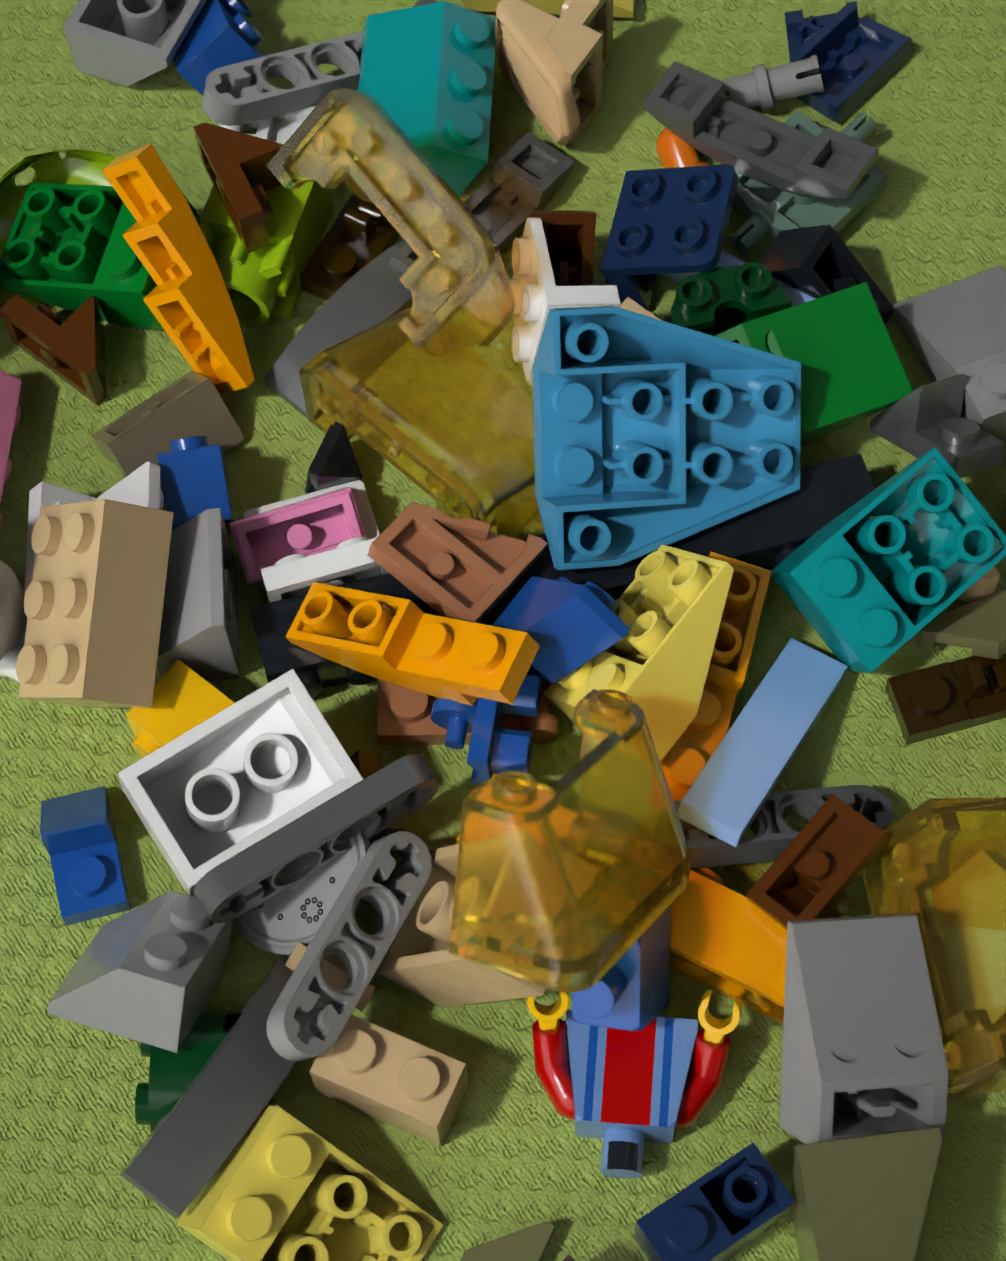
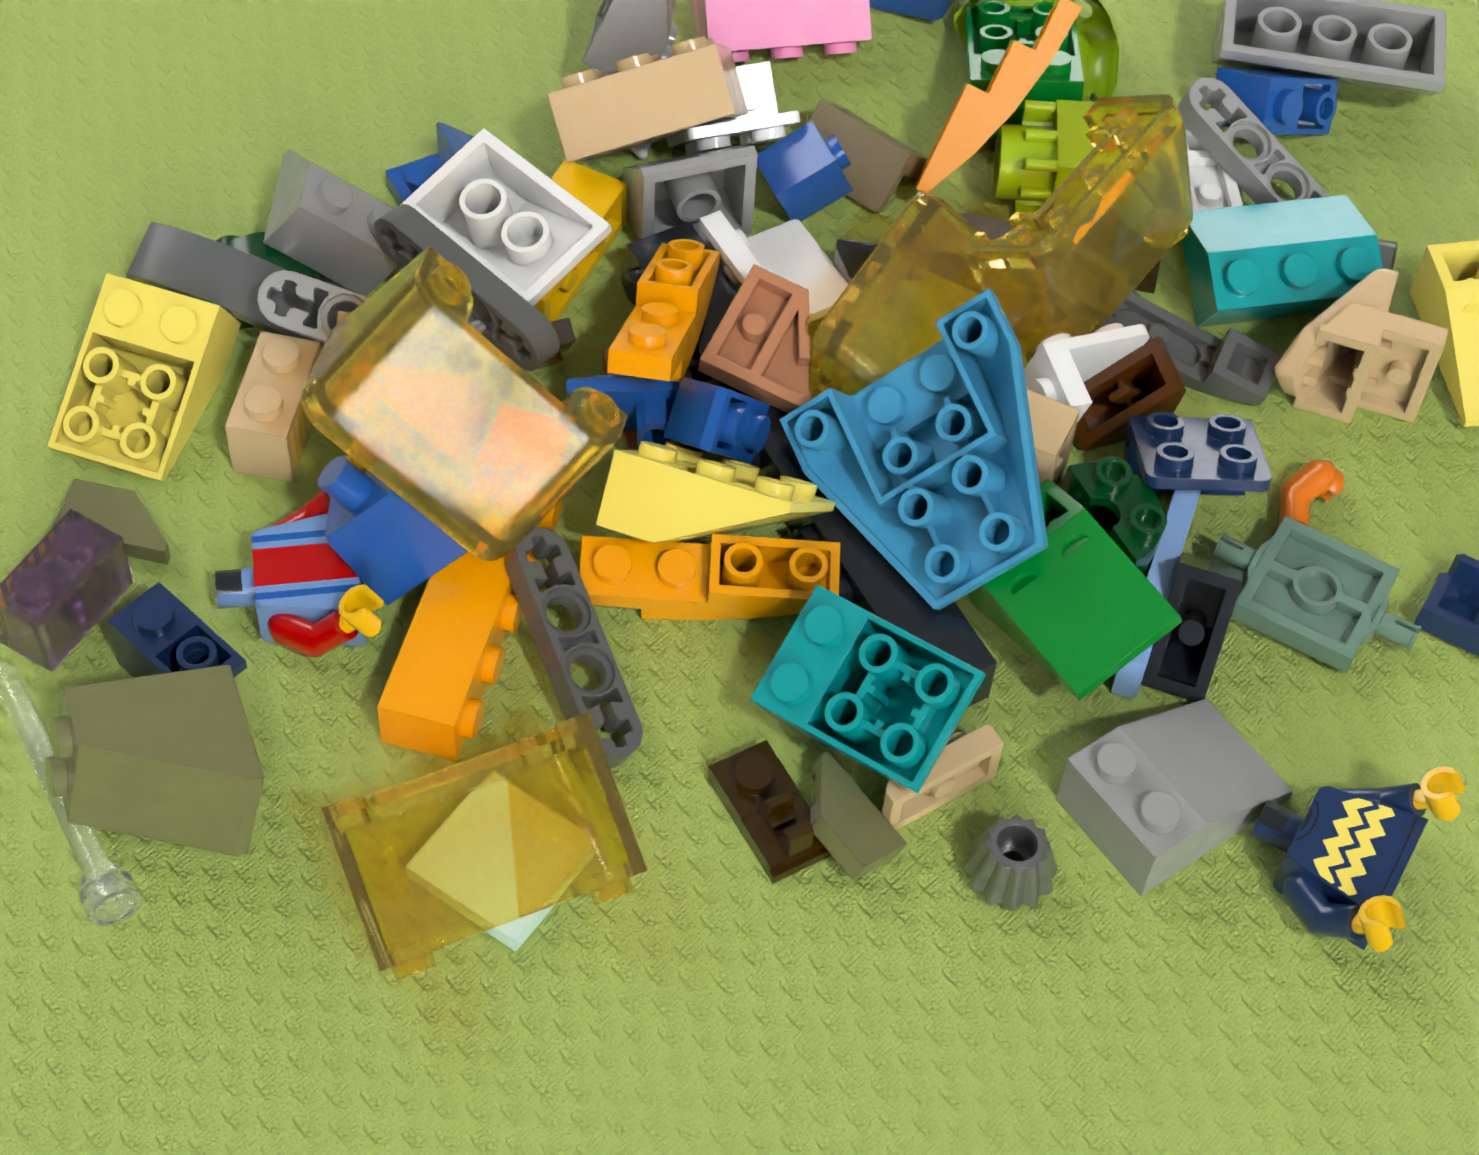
camera: 70 degrees right, 10 degrees down
(67, 348) = (923, 68): reddish brown slope -> none
(240, 178) = (1063, 108): reddish brown slope -> none
(295, 528) = (784, 248): bright pink slope -> none
(755, 144) = (1340, 518): dark grey slope -> none
(761, 742) = (653, 623): light blue tile -> none
(774, 84) = (1418, 539): light grey pin -> none
(819, 866) = (521, 675): reddish brown slope -> none
(860, 1031) = (361, 721): light grey slope -> none
(932, 419) = (1048, 733): flat silver slope -> none

